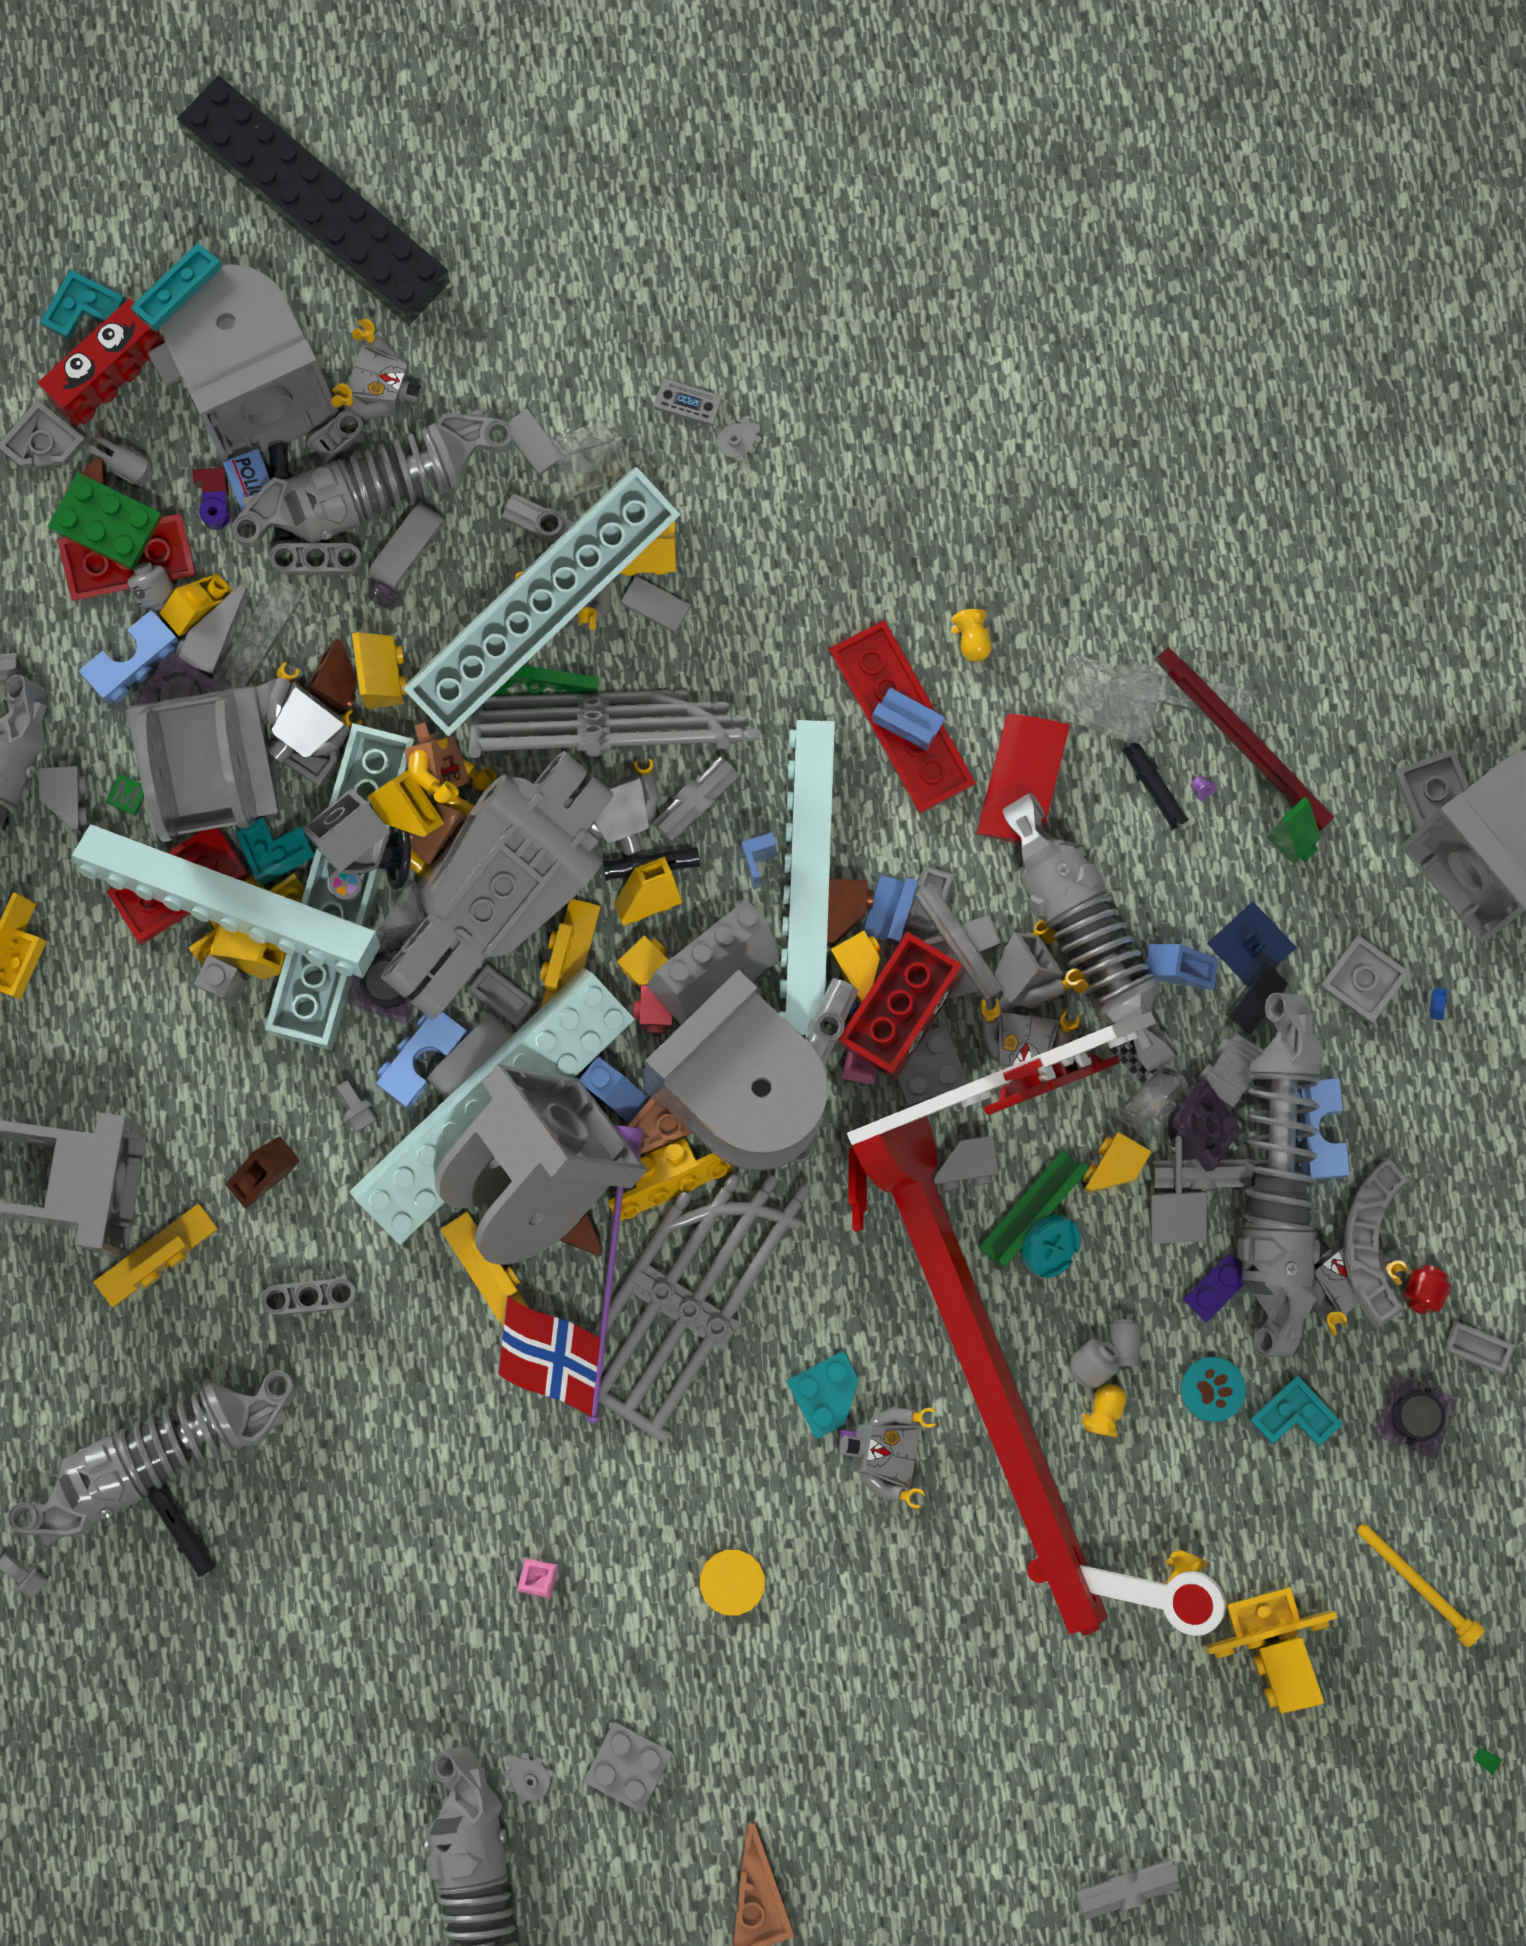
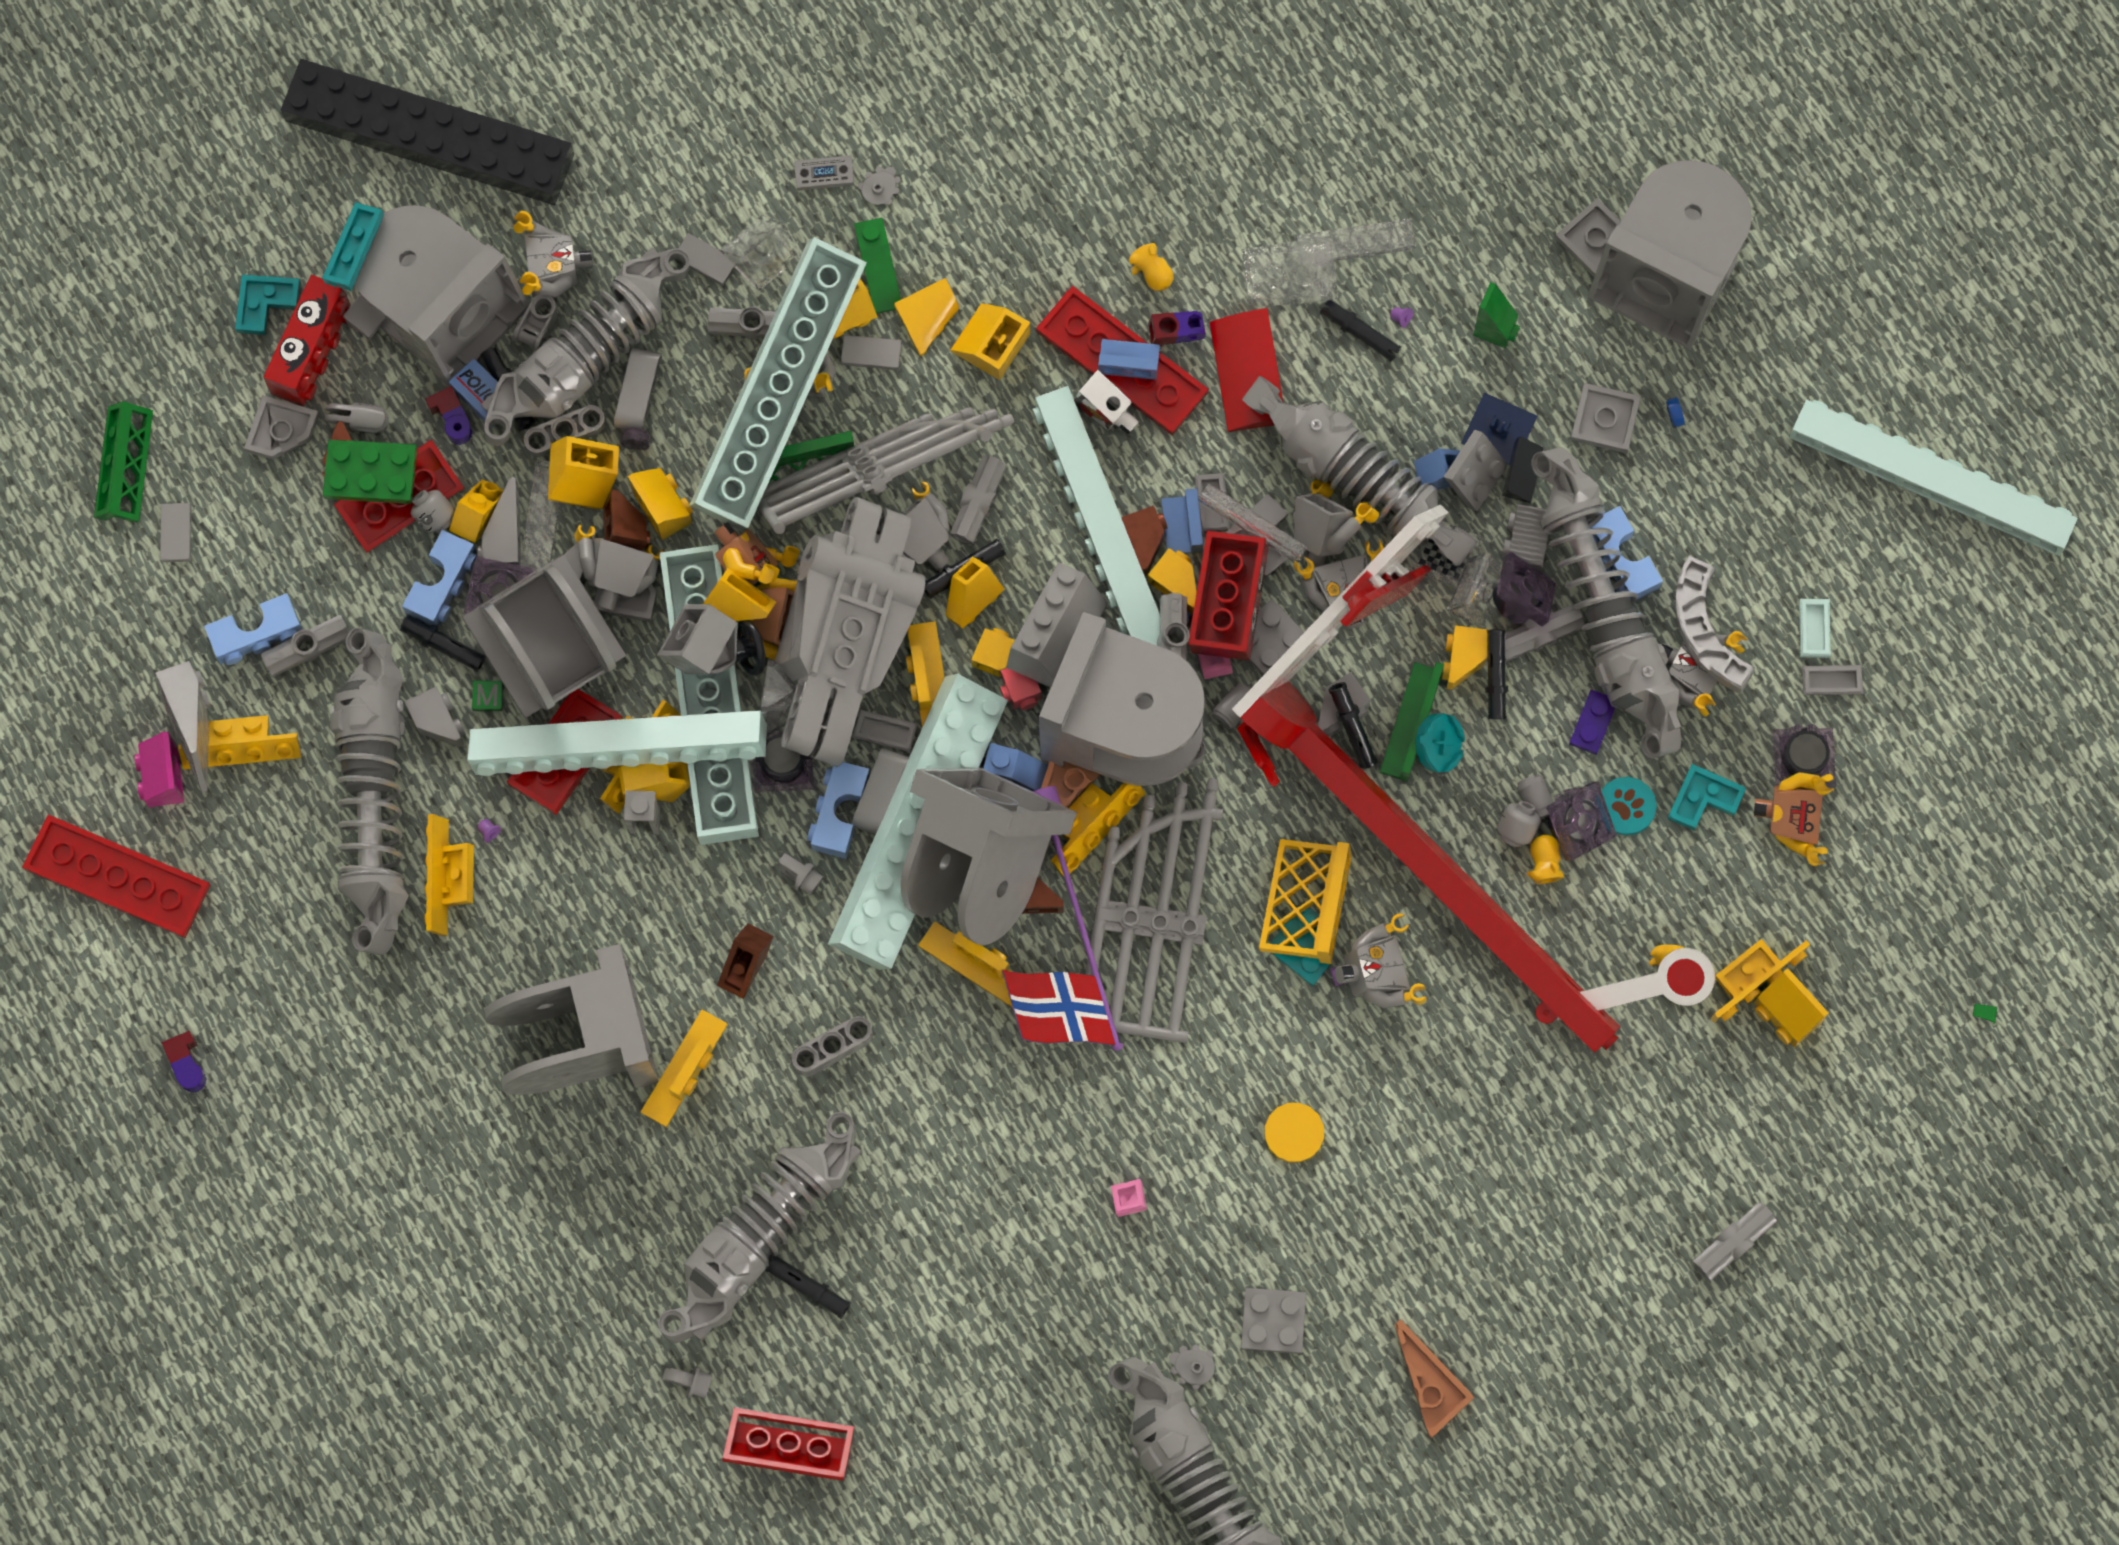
camera: 20 degrees left, 5 degrees down
(69, 931) = (488, 830): none -> medium lavender piece
(89, 1688) = (788, 1449): none -> red slope
(98, 714) = (432, 637): none -> black pin
(273, 857) = (640, 694): teal plate -> none
(313, 608) = (582, 471): none -> yellow slope
(345, 886) = (714, 687): light grey tile -> none
(699, 519) = (879, 267): none -> green slope
(728, 588) = (927, 313): none -> yellow slope
(755, 851) = (1048, 520): medium blue panel -> none
(780, 642) = (992, 339): none -> yellow slope
(854, 745) = (1093, 400): none -> white torso
(859, 1116) = (1223, 710): none -> light grey piece
(869, 1366) = (1331, 905): none -> yellow fence
(969, 1179) = (1348, 714): none -> black pin
(970, 706) = (1176, 327): none -> leg
(1134, 1210) = (1496, 674): none -> black pin
(1156, 1390) = (1578, 822): none -> clear purple piece
(1180, 1214) = (1535, 674): light grey piece -> none
(1208, 980) = (1475, 470): none -> light grey plate
(1240, 734) = (1410, 256): dark red piece -> none
(1382, 1475) = (1797, 813): none -> torso
(1427, 1290) = (1768, 650): red head -> none
(1468, 1630) = (1922, 912): yellow piece -> none
(1484, 1286) = (1814, 628): none -> light aqua tile

